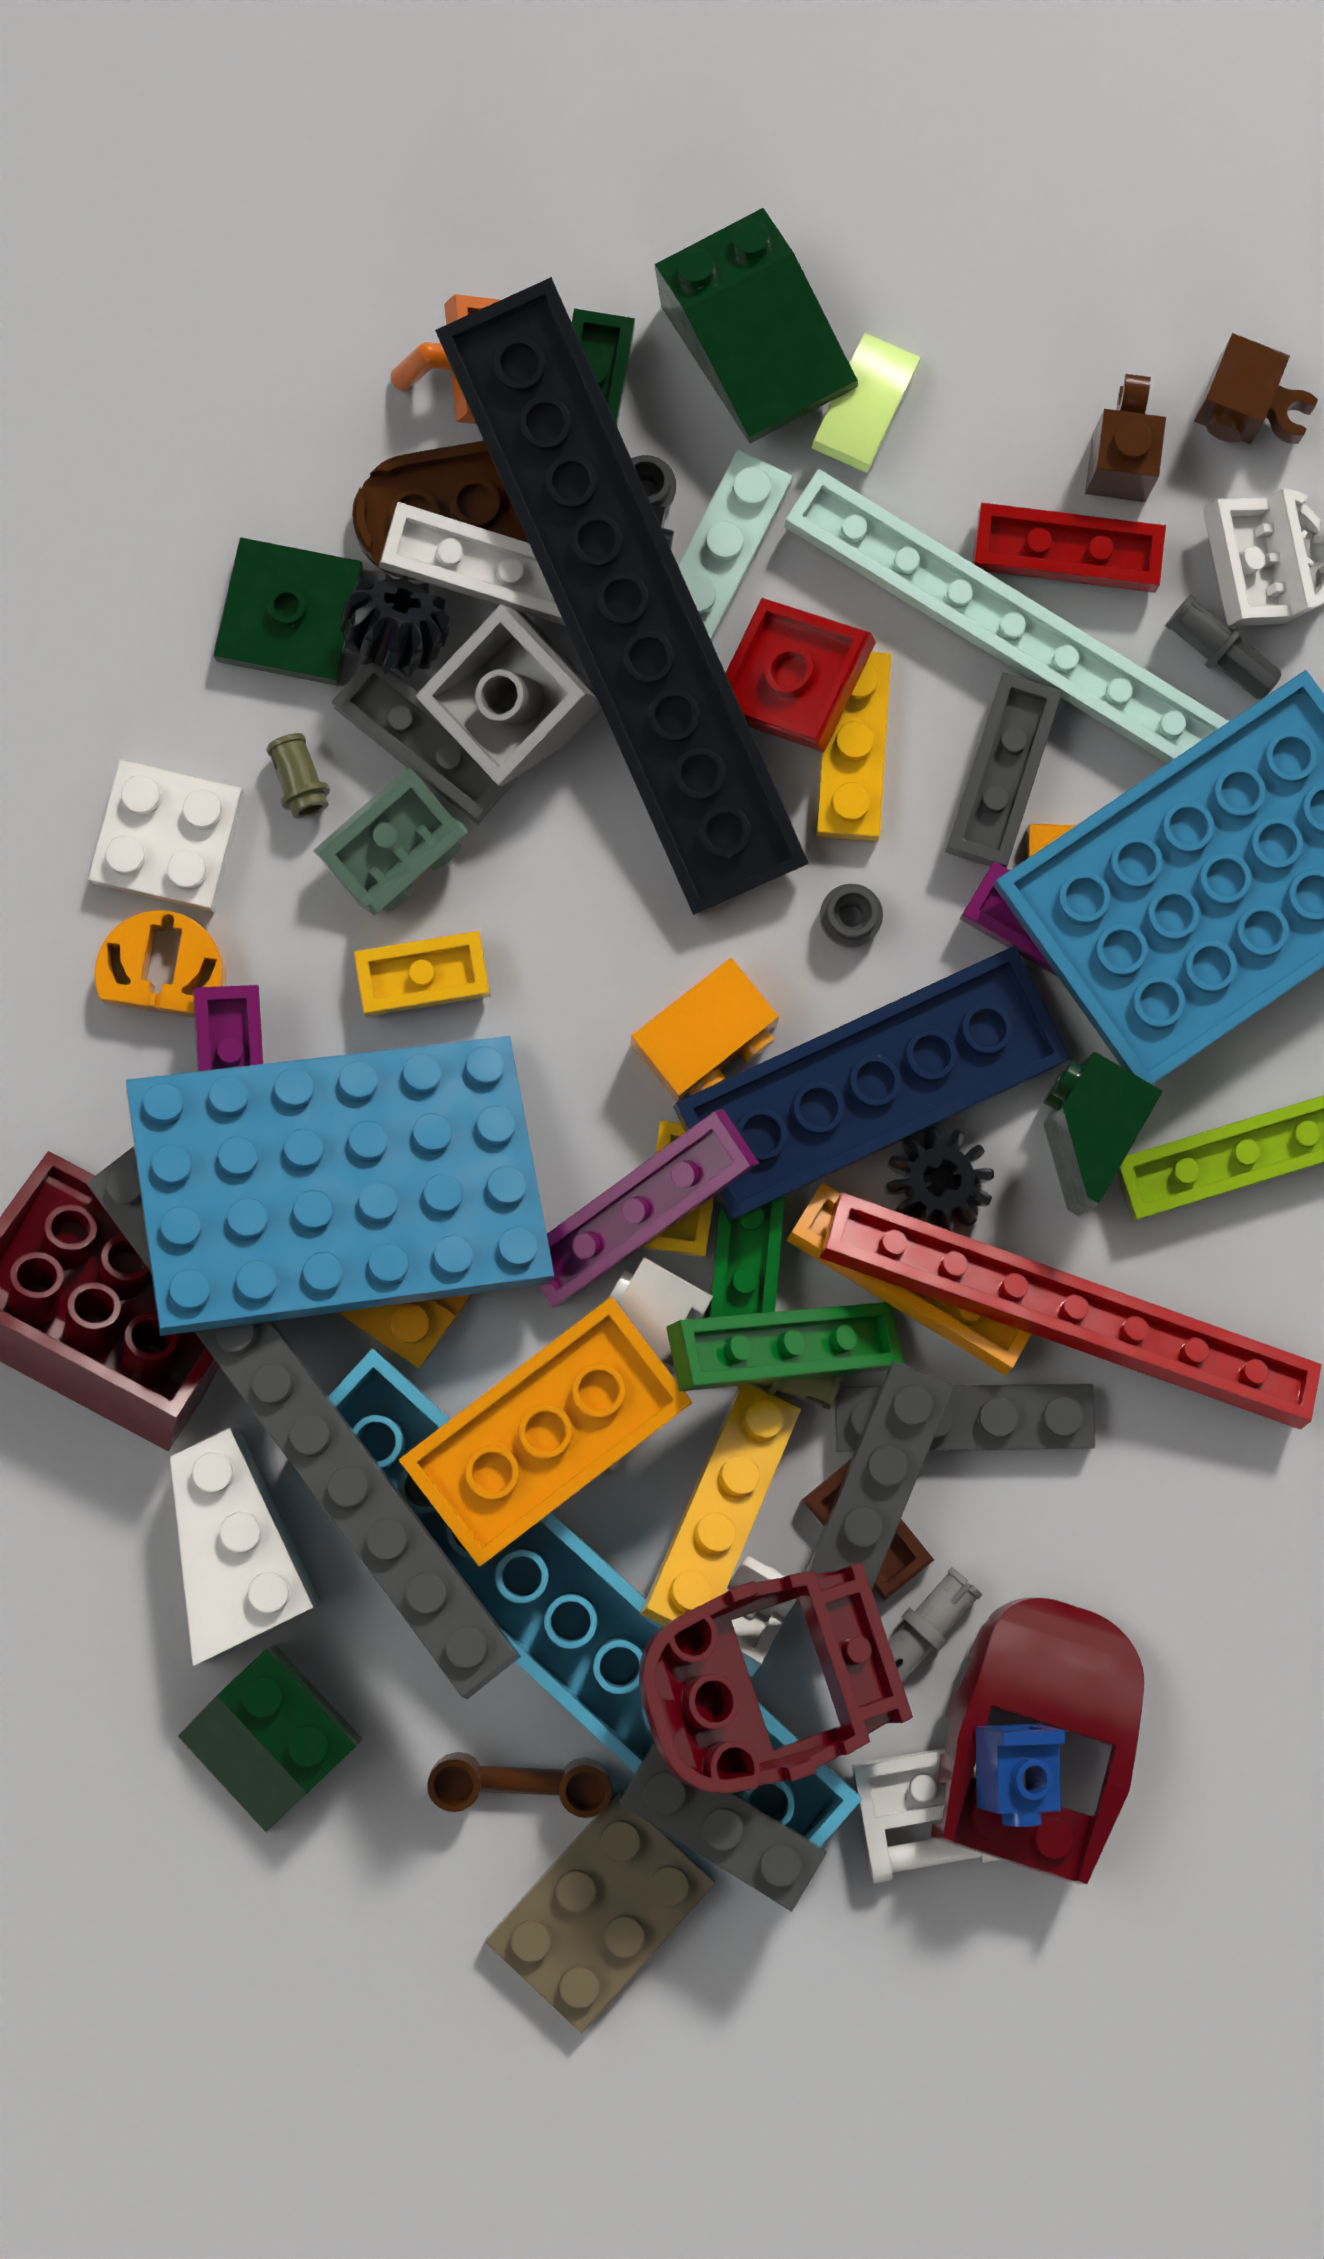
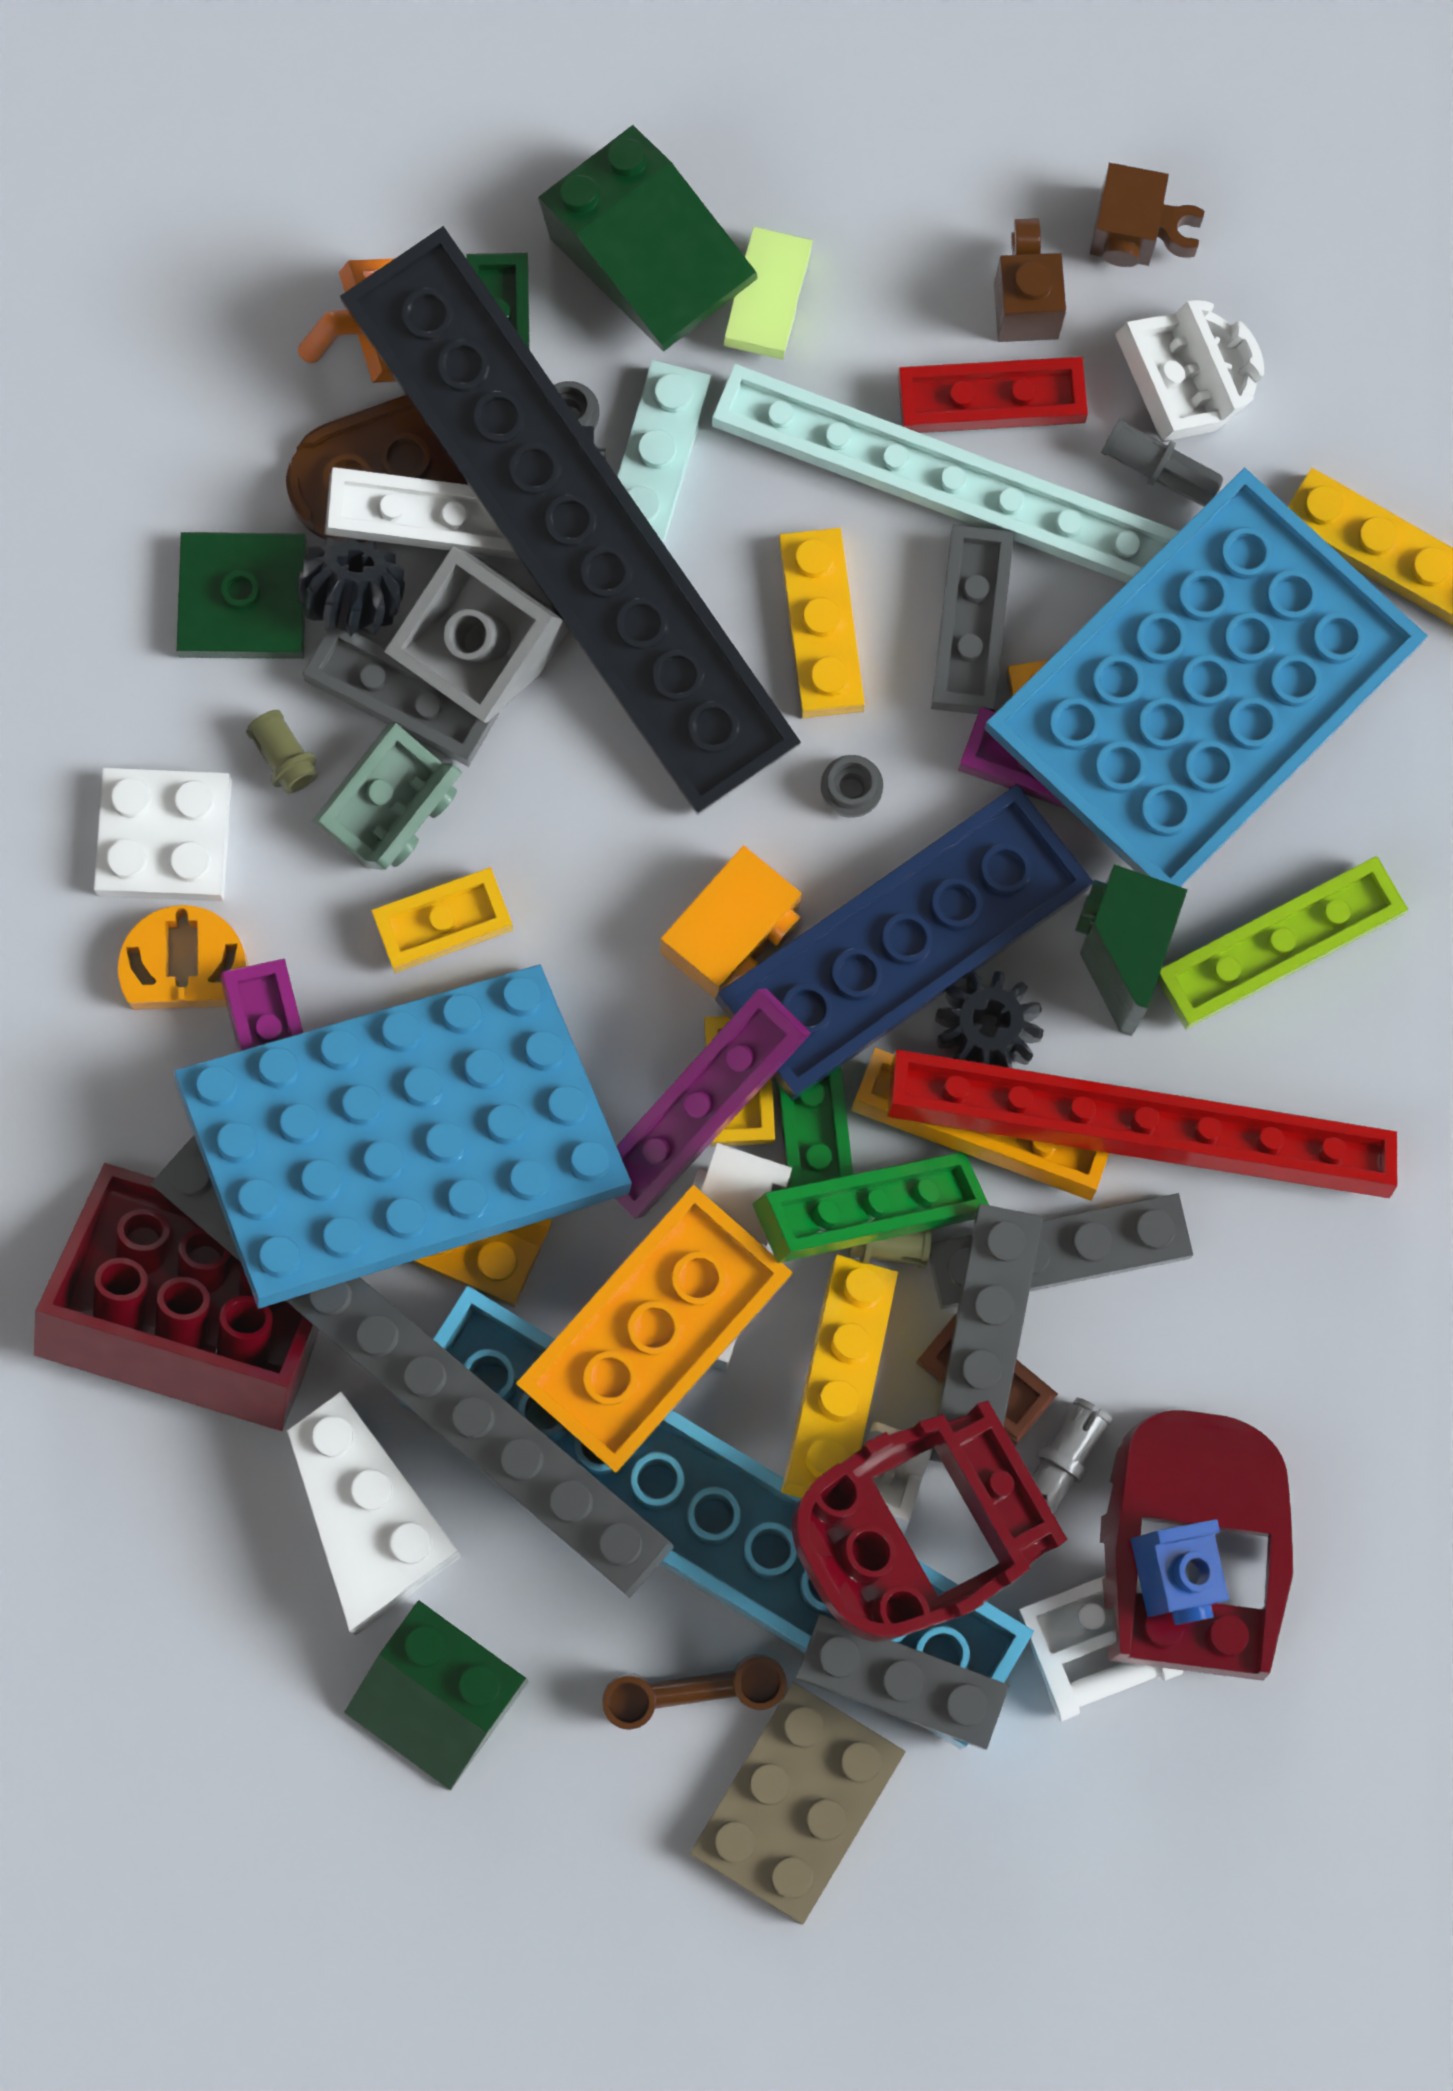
camera: 10 degrees left, 5 degrees down
(797, 672) = (753, 561): red tile -> none

